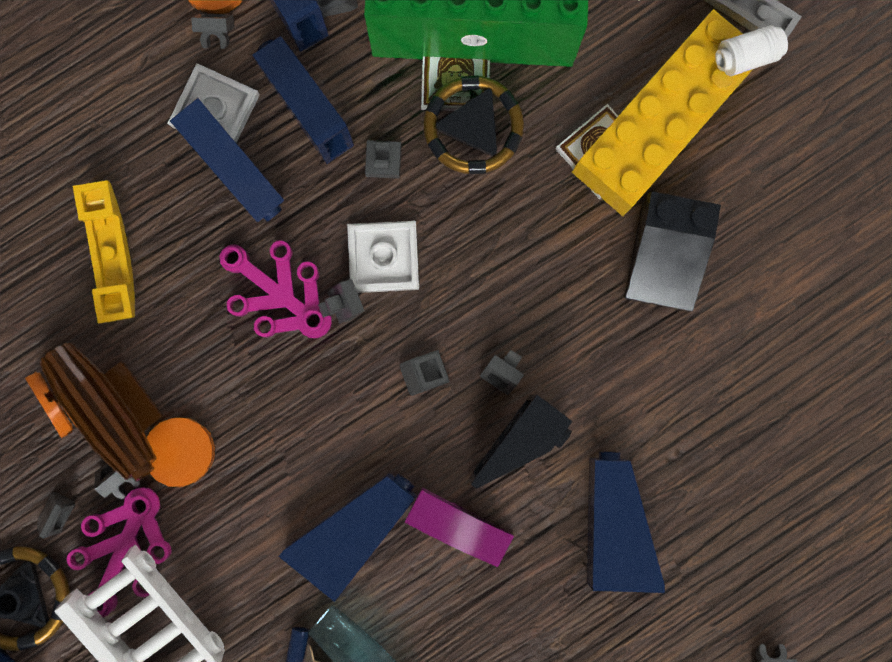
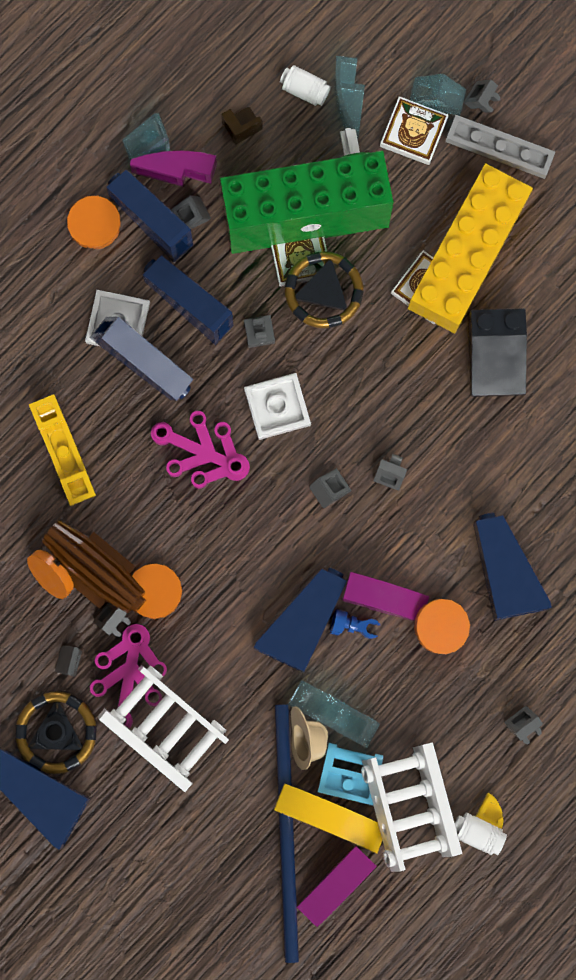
camera: 15 degrees left, 5 degrees down
(214, 24) = (104, 256): dark grey tile -> none
(343, 302) = (255, 447): dark grey tile -> none
(397, 544) = (341, 621): none -> blue piece
(521, 579) = (442, 626): none -> orange tile
(526, 437) = (424, 509): black slope -> none
(751, 50) = (518, 190): white head -> none

